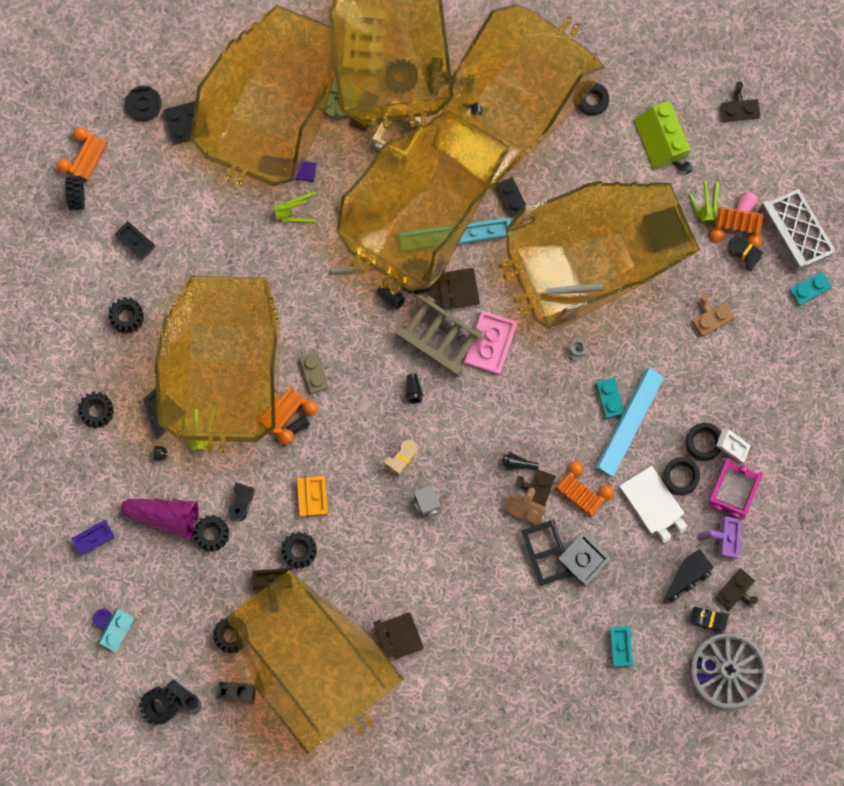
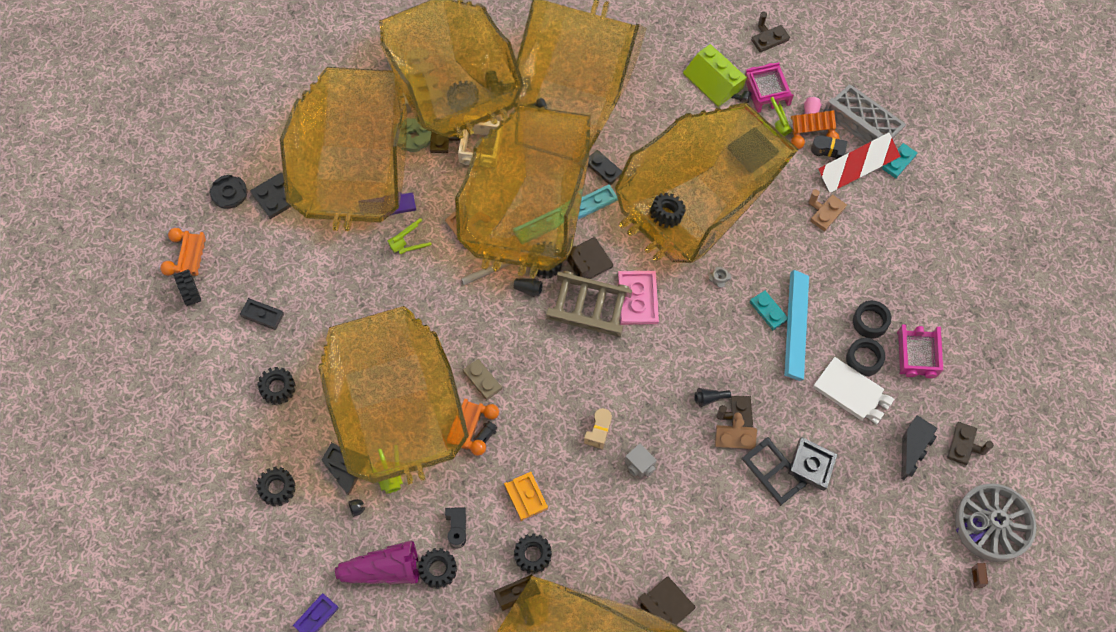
camera: 25 degrees left, 10 degrees down
(413, 389) = (584, 363): black cone -> none
(558, 258) = (670, 203): none -> black tyre
(574, 289) = (697, 223): light grey bar -> none
(579, 494) = (781, 406): orange gear -> none
(593, 110) = (649, 72): black tyre -> none
(621, 646) = (885, 535): teal plate -> none
(690, 712) = (979, 575): none -> reddish brown tile
(709, 619) = (955, 479): black leg -> none
(712, 163) = (765, 83): none -> dark pink window
(728, 537) = (934, 396): medium lavender plate -> none
(733, 445) = (900, 312): white plate -> none
(766, 278) = (859, 162): none -> sticker

